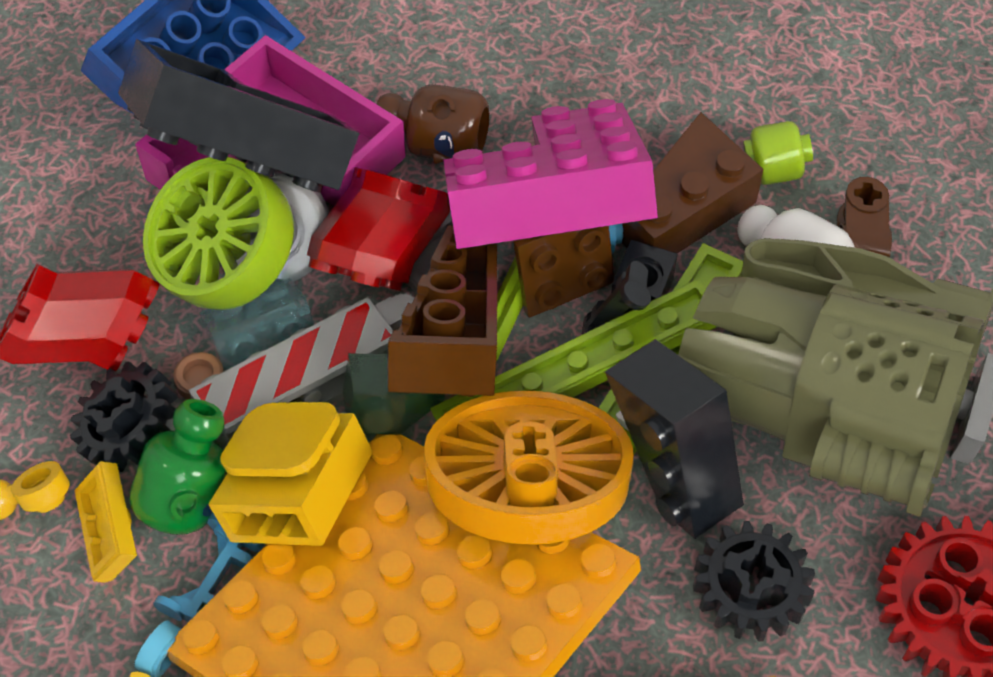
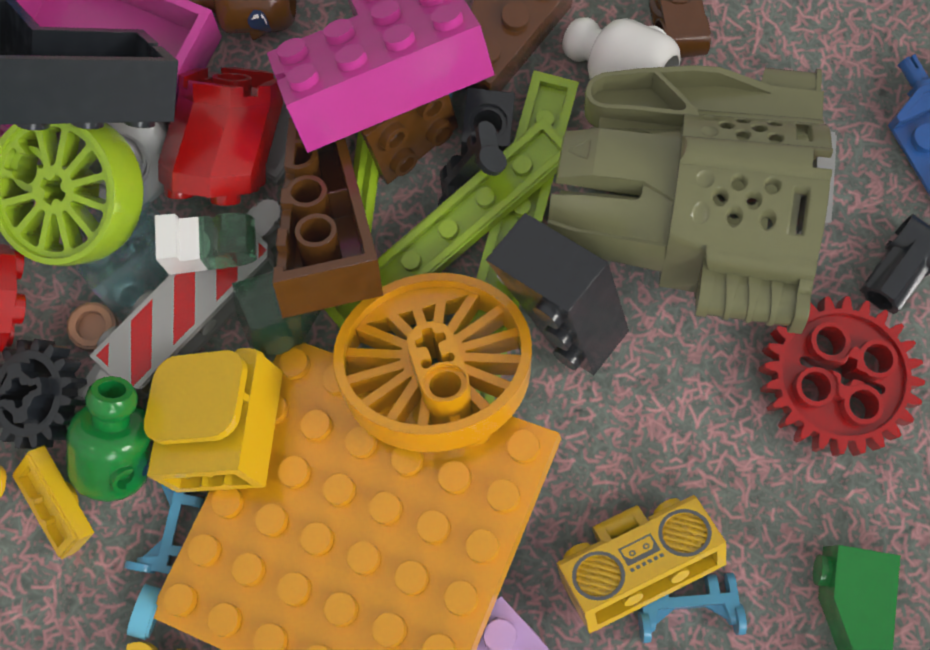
camera: 20 degrees left, 20 degrees up
(333, 310) = (204, 242): none -> leg
(780, 581) = (676, 404): black gear -> none

